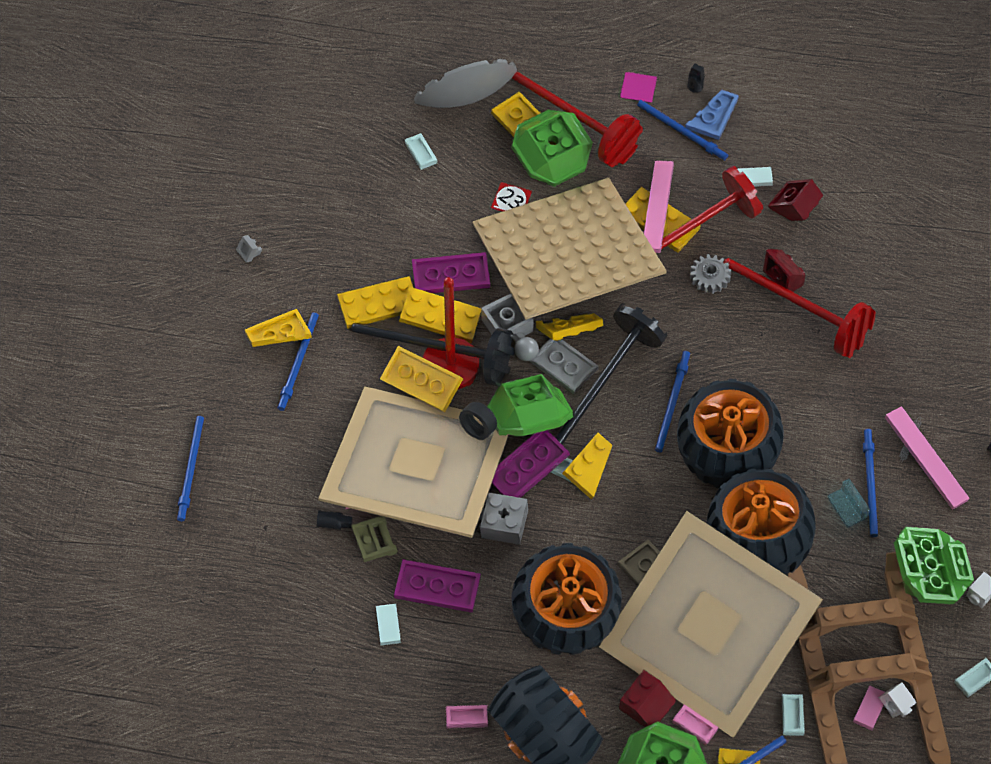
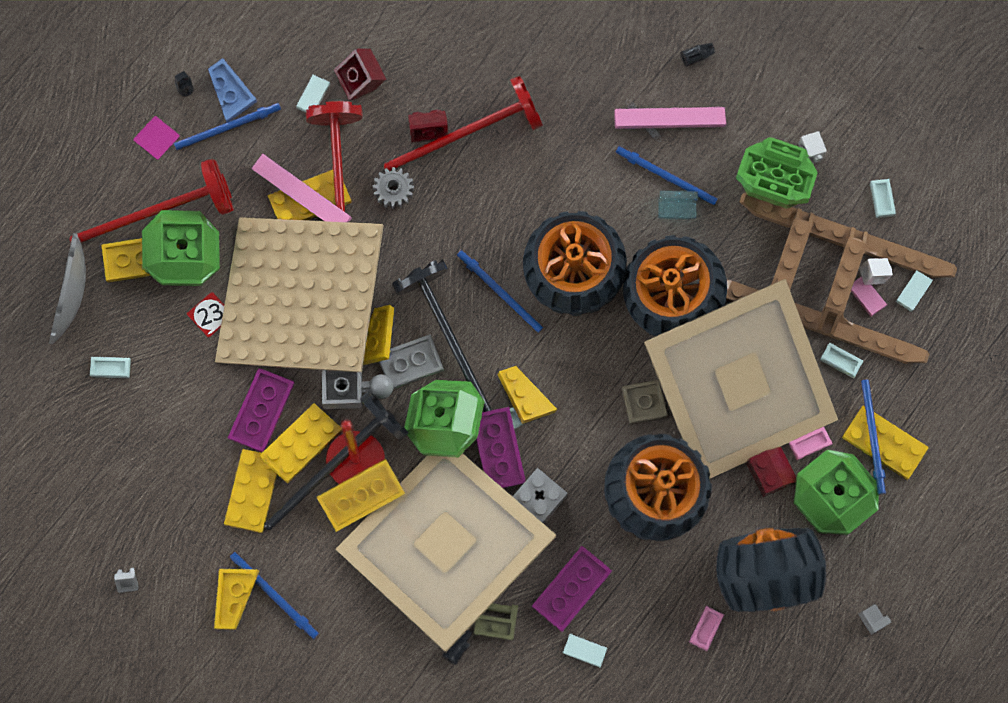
camera: 65 degrees left, 15 degrees up
(485, 416) = (438, 468): black tyre -> none
(903, 747) = (914, 291): none -> light aqua tile

